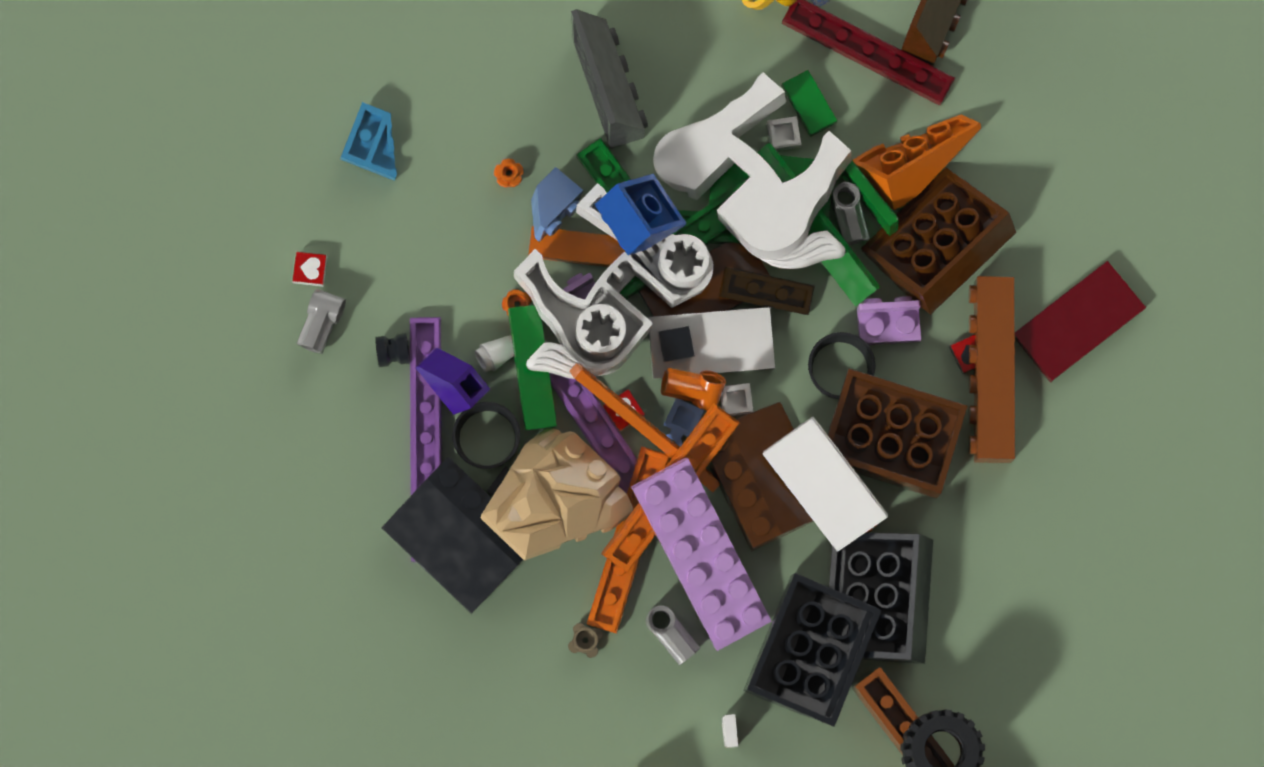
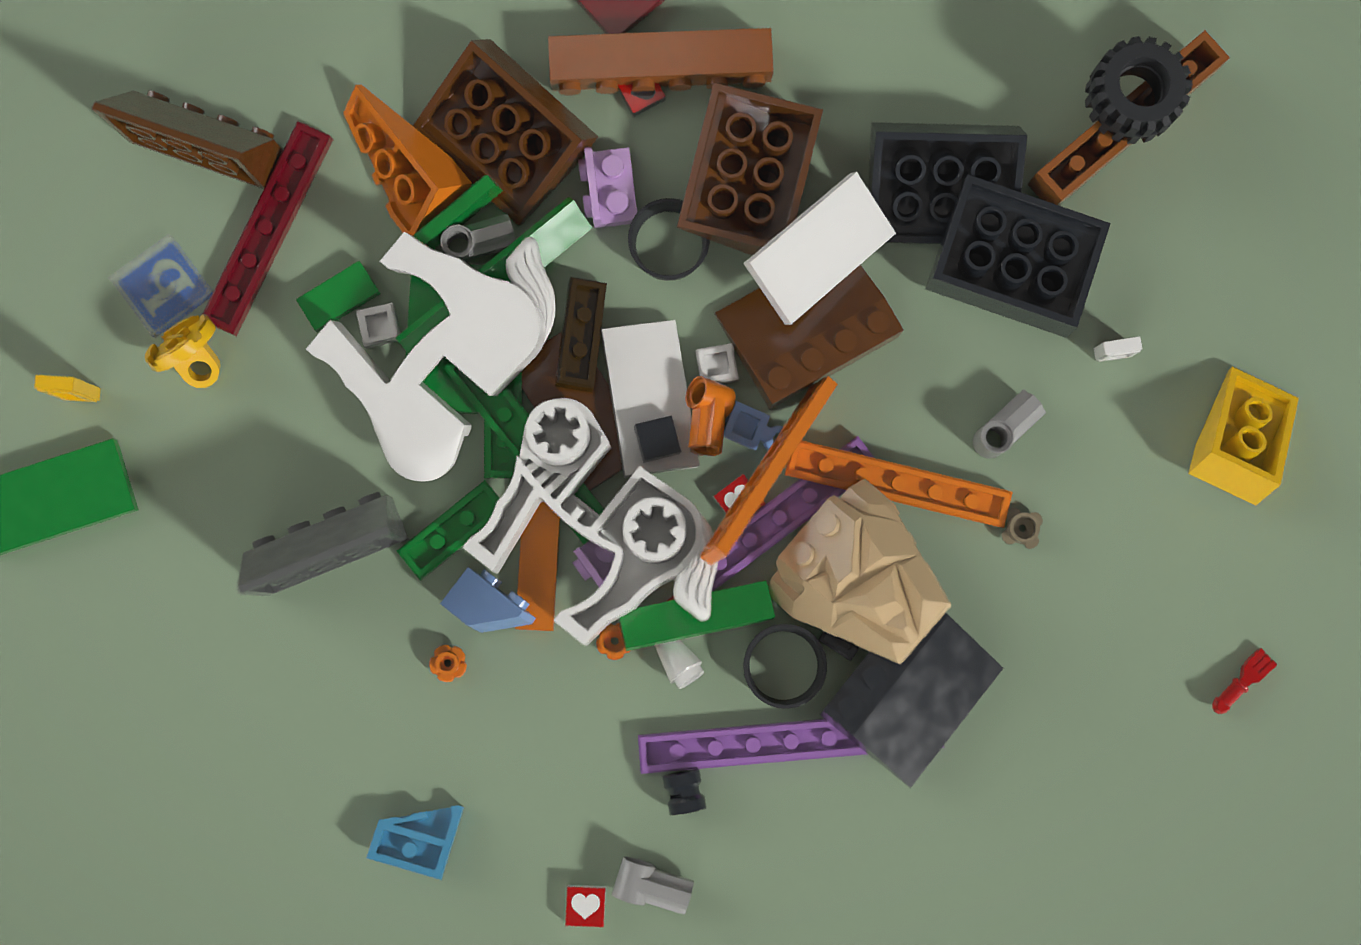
camera: 95 degrees left, 5 degrees up
(452, 380) = (721, 713): dark purple slope -> none
(639, 213) = (502, 489): blue slope -> none
(700, 450) = (840, 433): orange tile -> none
(701, 553) = (913, 393): lavender plate -> none

